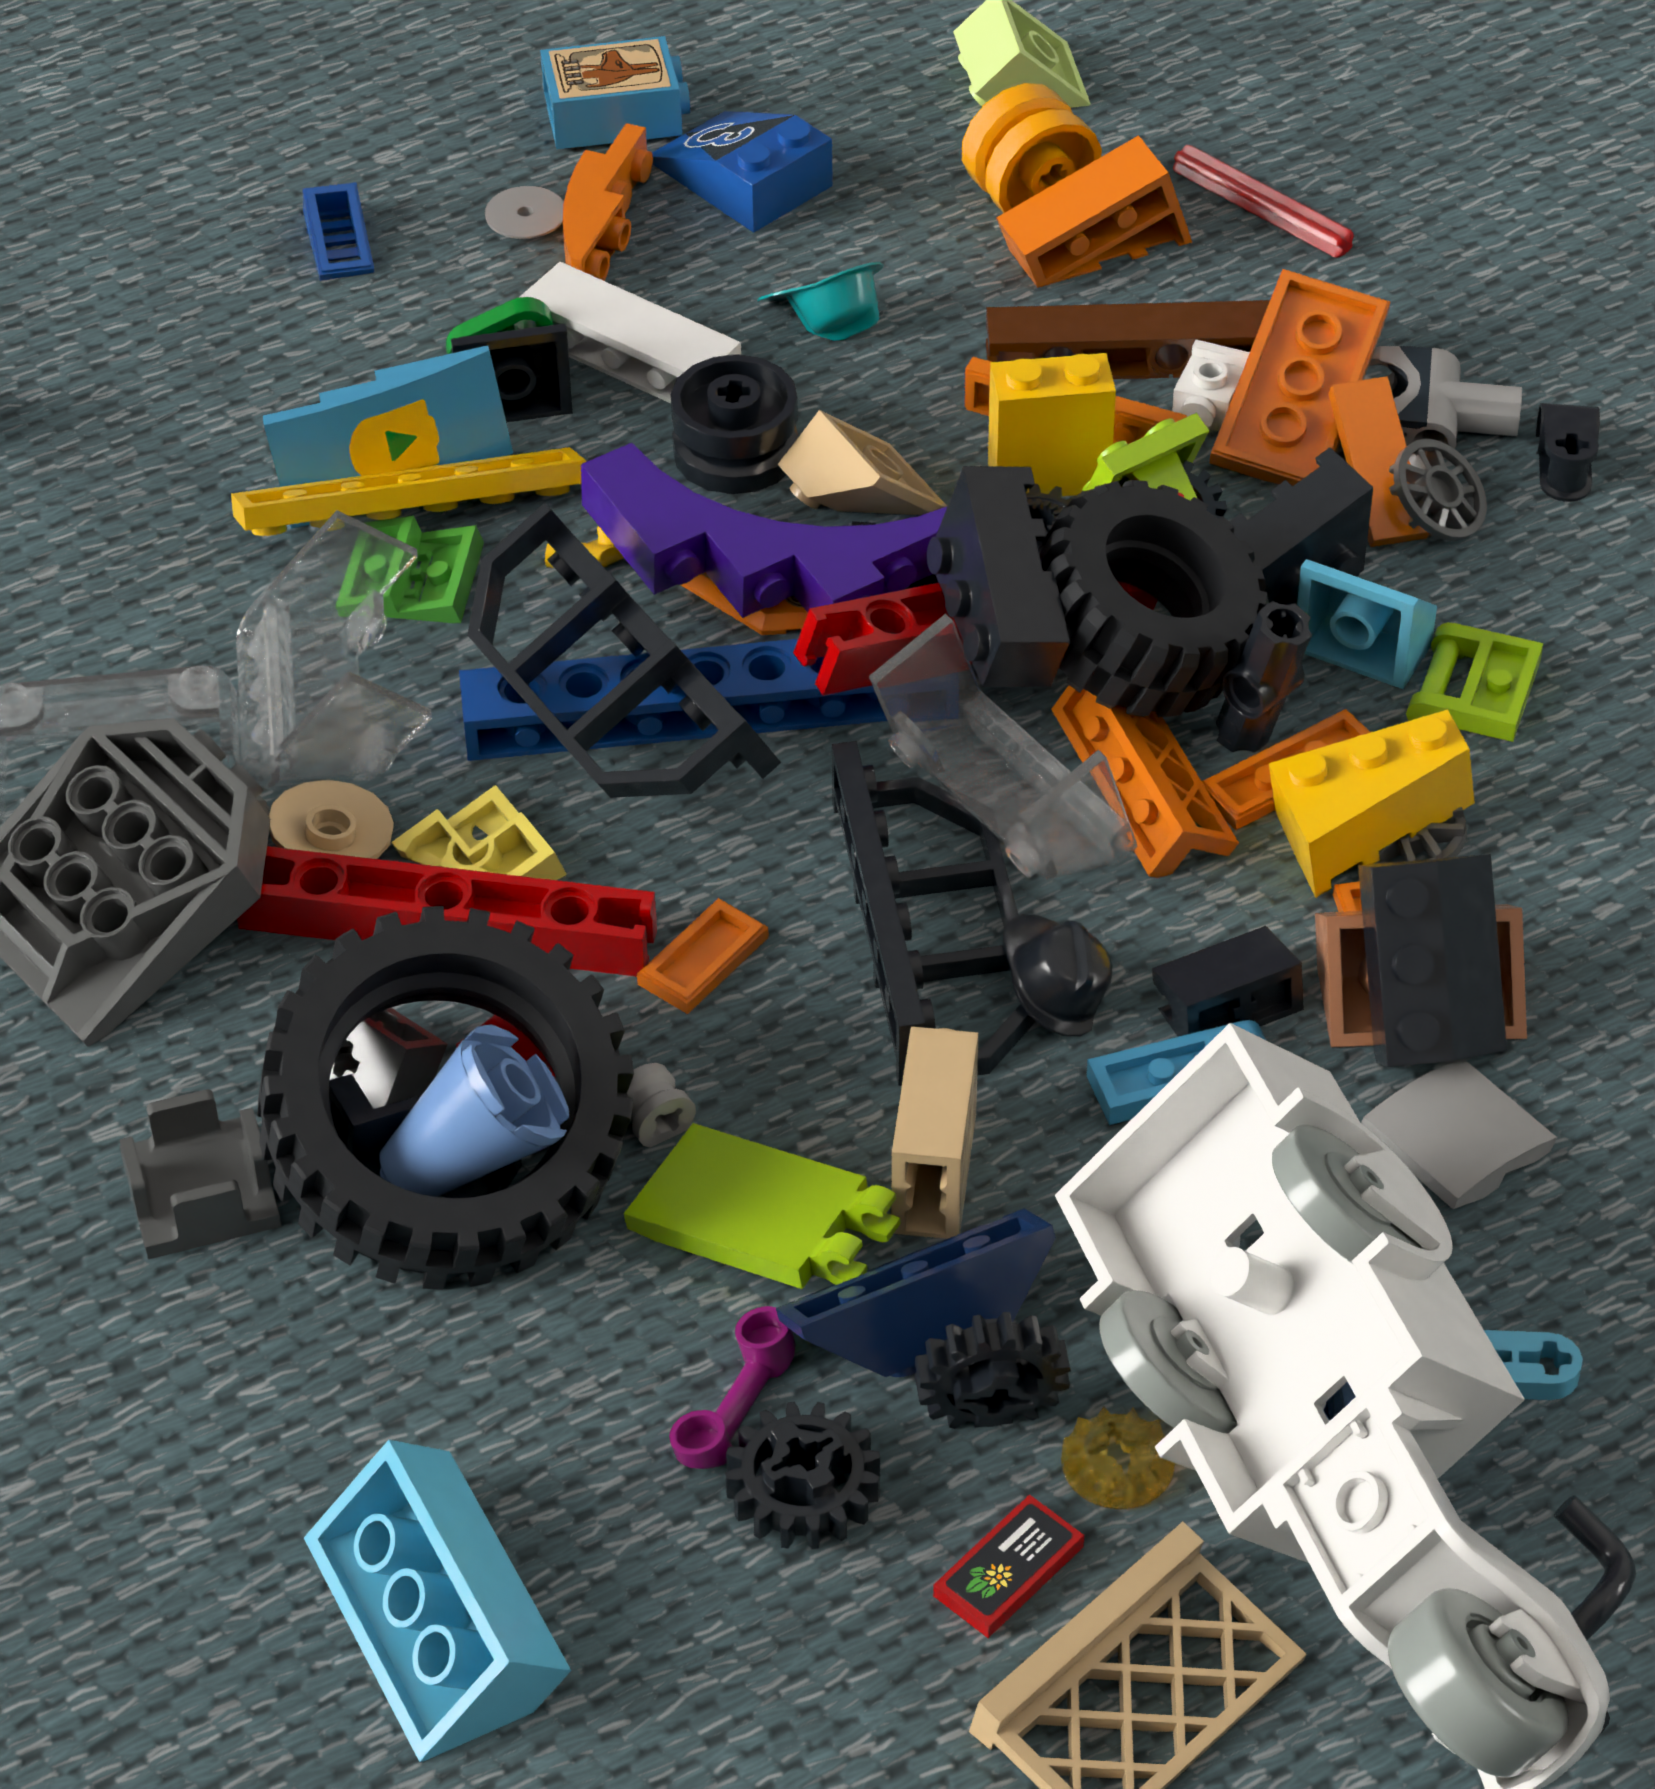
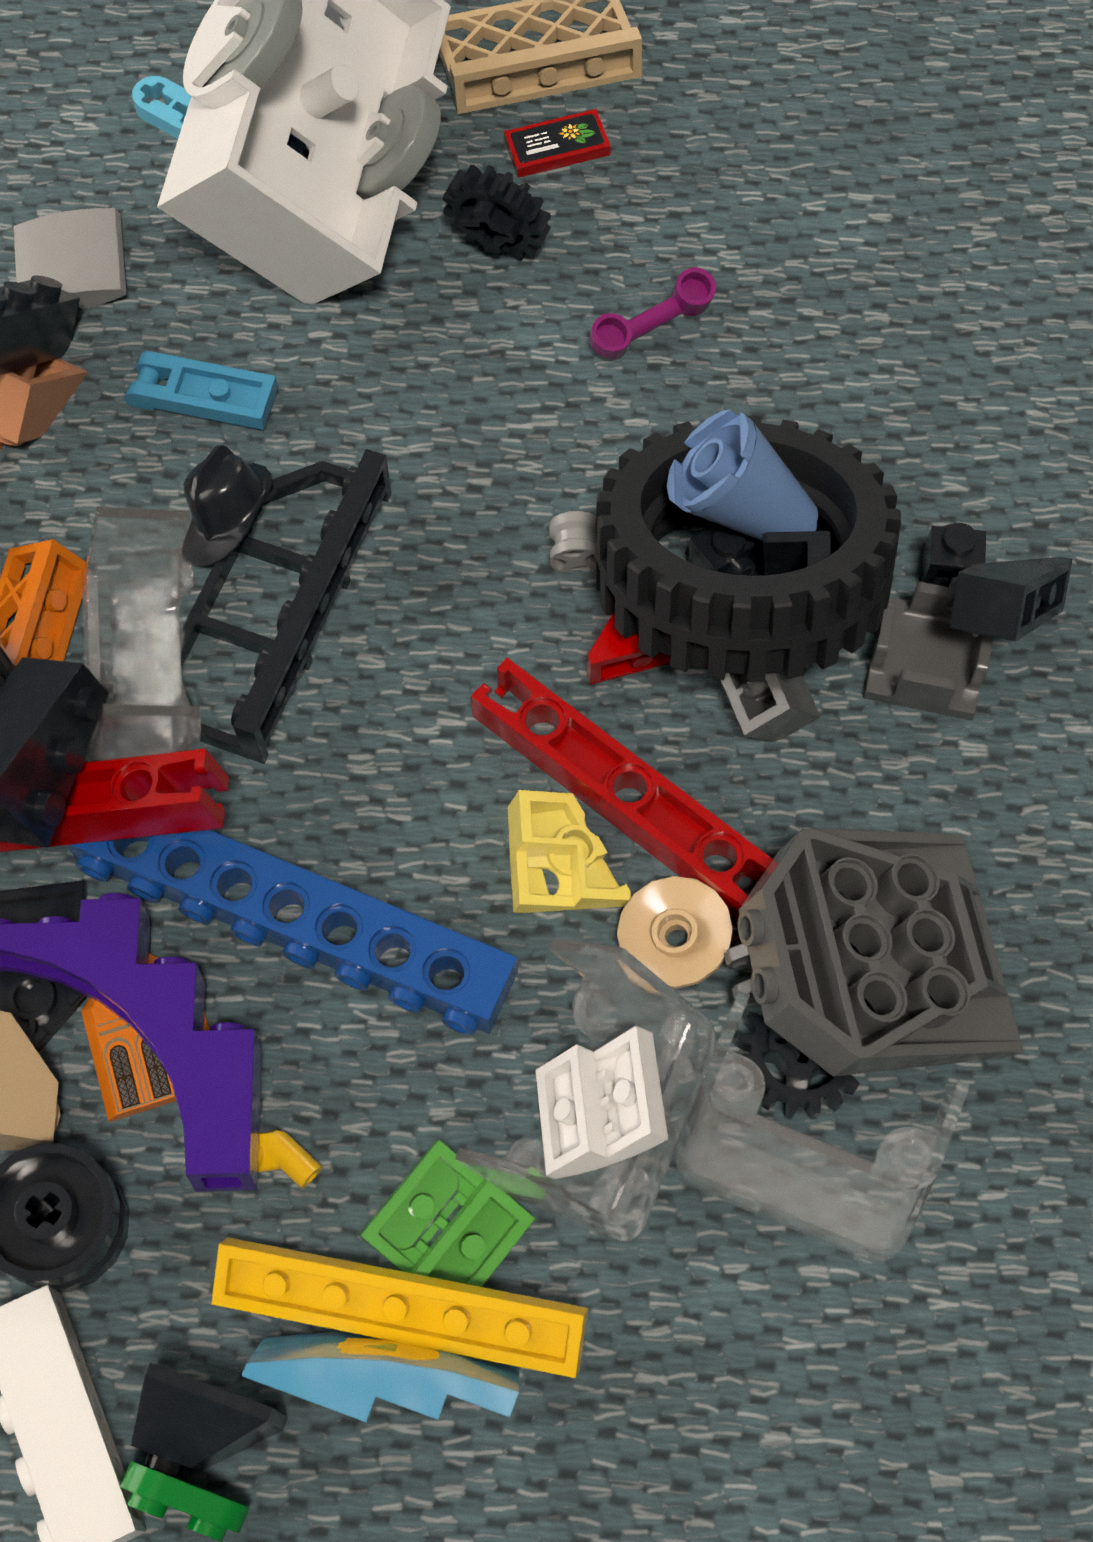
camera: 150 degrees left, 20 degrees up
(126, 1194) = (1008, 596): none -> black slope
(216, 1271) = (951, 549): none -> black brick
(309, 656) = (600, 1104): none -> white slope
(434, 1600) = (912, 270): medium azure slope -> none
(638, 632) = (323, 891): black plate -> none
(702, 956) = (453, 667): orange tile -> none
(761, 1209) = (550, 421): lime tile -> none
(800, 1477) = (645, 239): black gear -> none
(898, 1306) = (499, 309): dark blue wedge -> none
(934, 1131) = (412, 388): tan brick -> none
(1100, 1477) = (426, 182): clear yellow gear -> none
(1231, 983) = (120, 425): black hinge -> none

